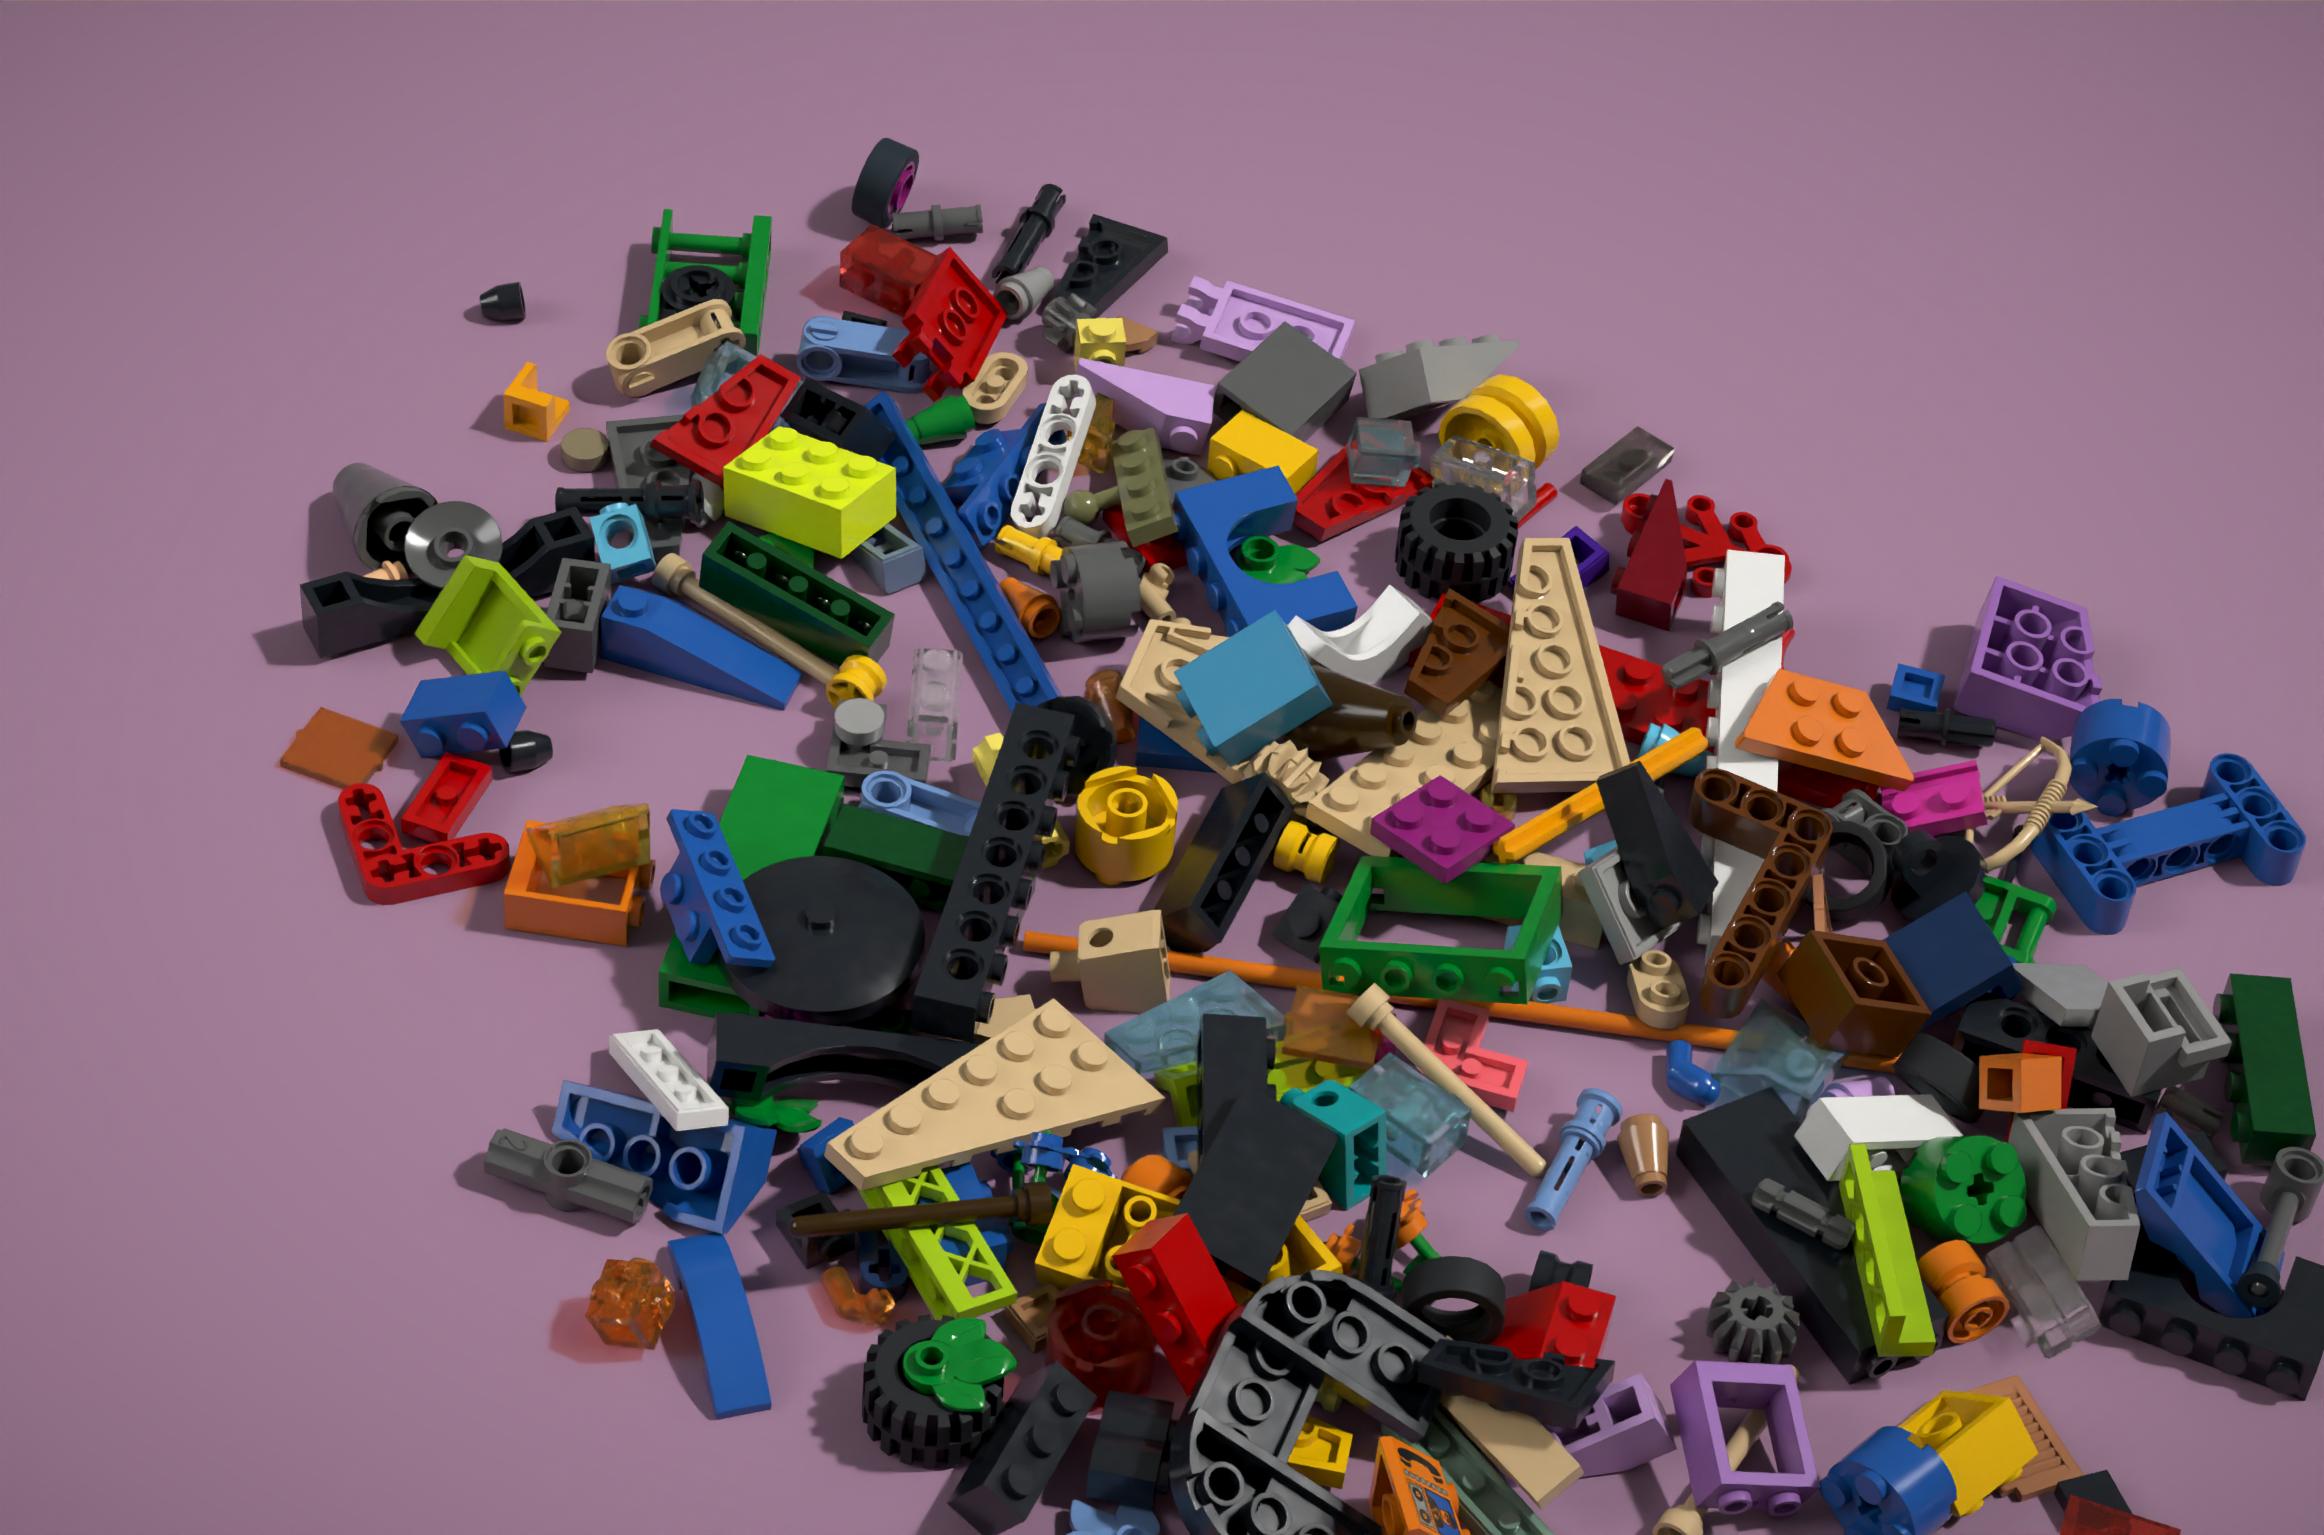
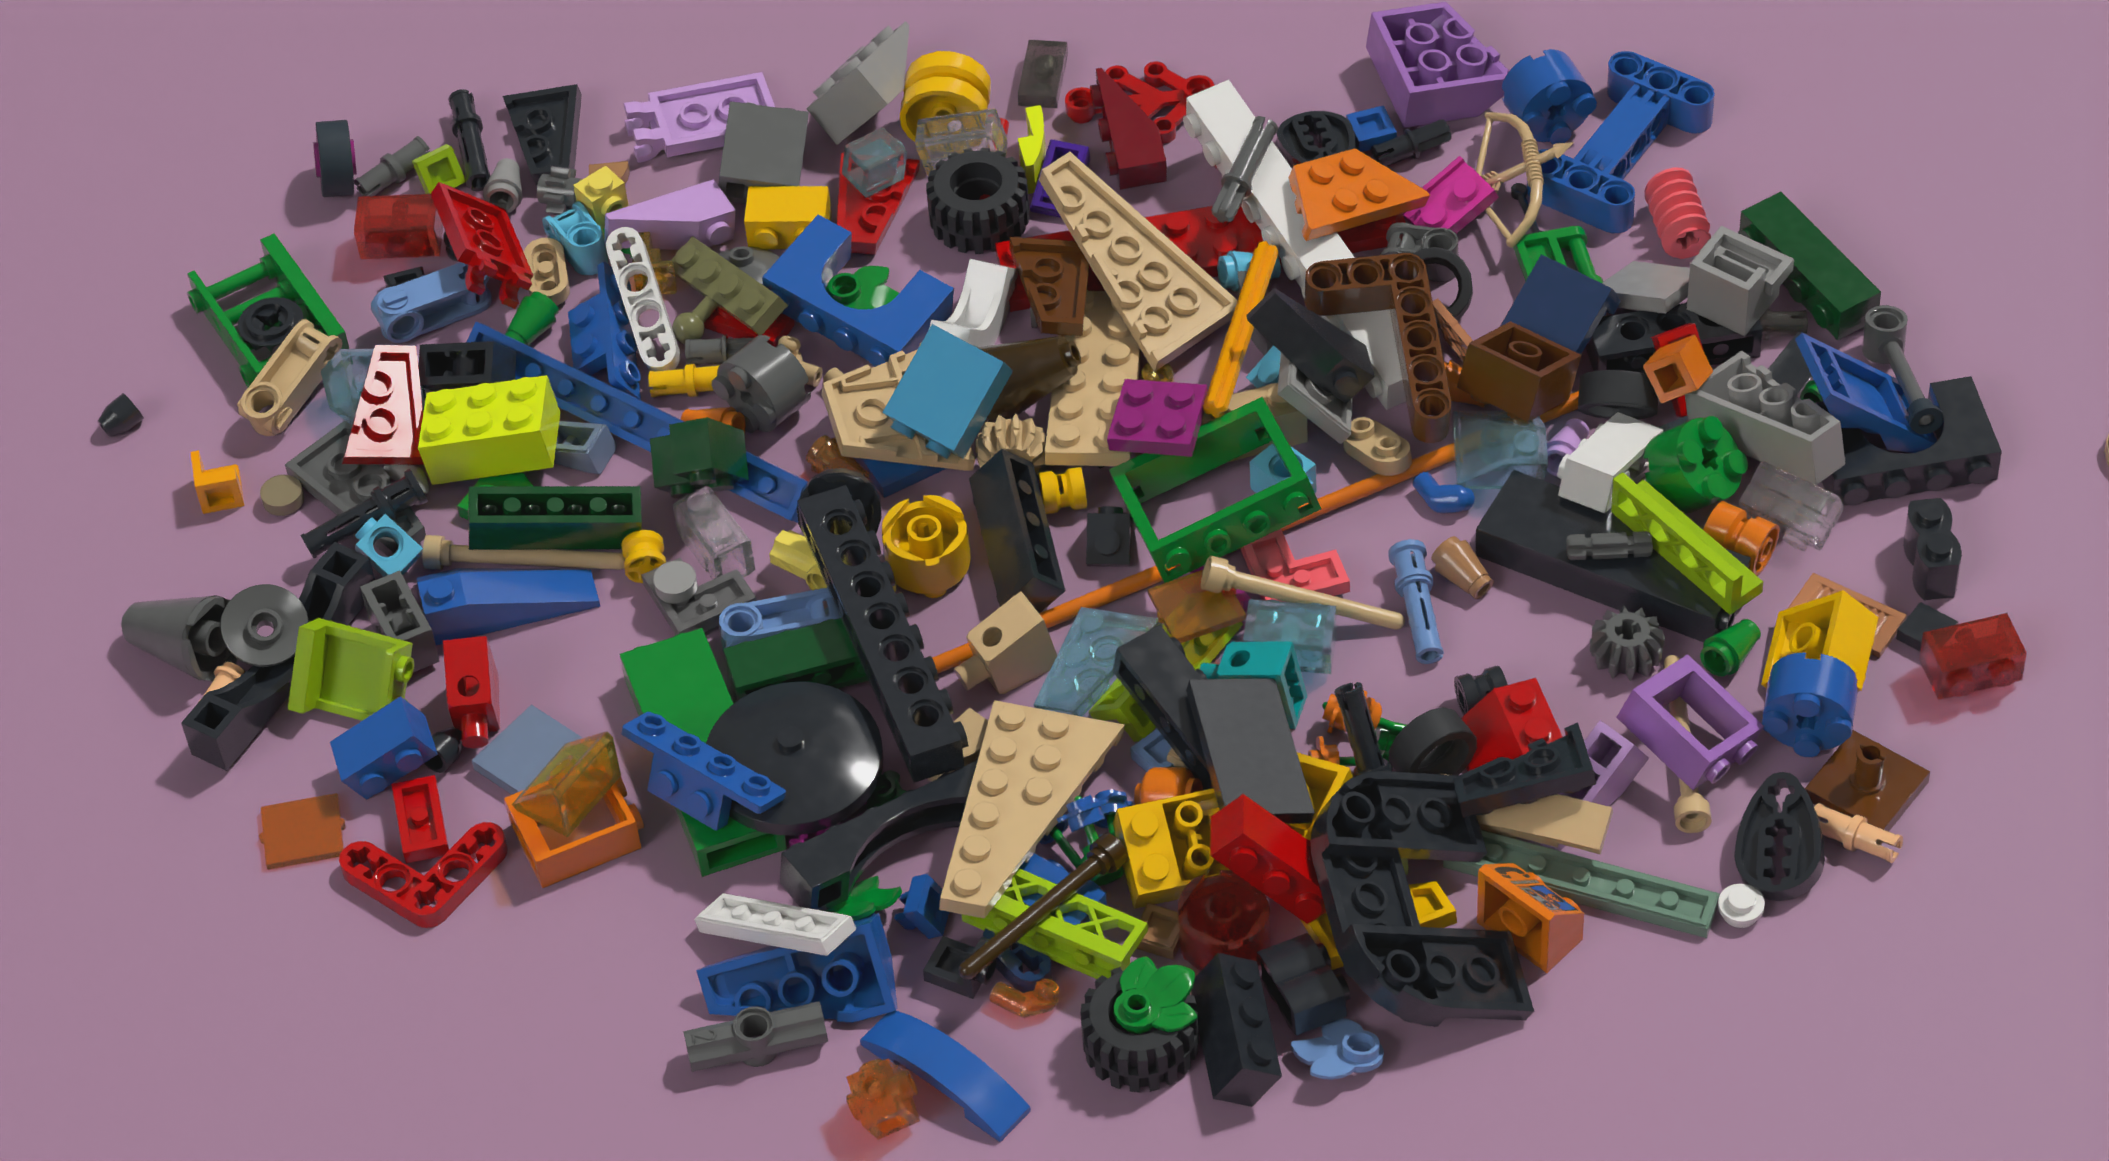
camera: 25 degrees left, 5 degrees up
(589, 709) = (472, 689): none -> red torso
(595, 788) = (522, 750): none -> sand blue tile
(976, 244) = (437, 167): none -> lime tile
(978, 620) = (698, 456): none -> dark green brick
(1047, 365) = (580, 238): none -> medium azure piece
(1554, 523) = (1033, 147): none -> neon yellow slope
(1859, 1393) = (1729, 648): none -> green cone
(1873, 670) = (1331, 129): none -> black piece
(1933, 872) = (1500, 256): black tile -> none
(2162, 1423) = (1932, 549): none -> black brick
(2170, 933) = (1677, 212): none -> coral piece

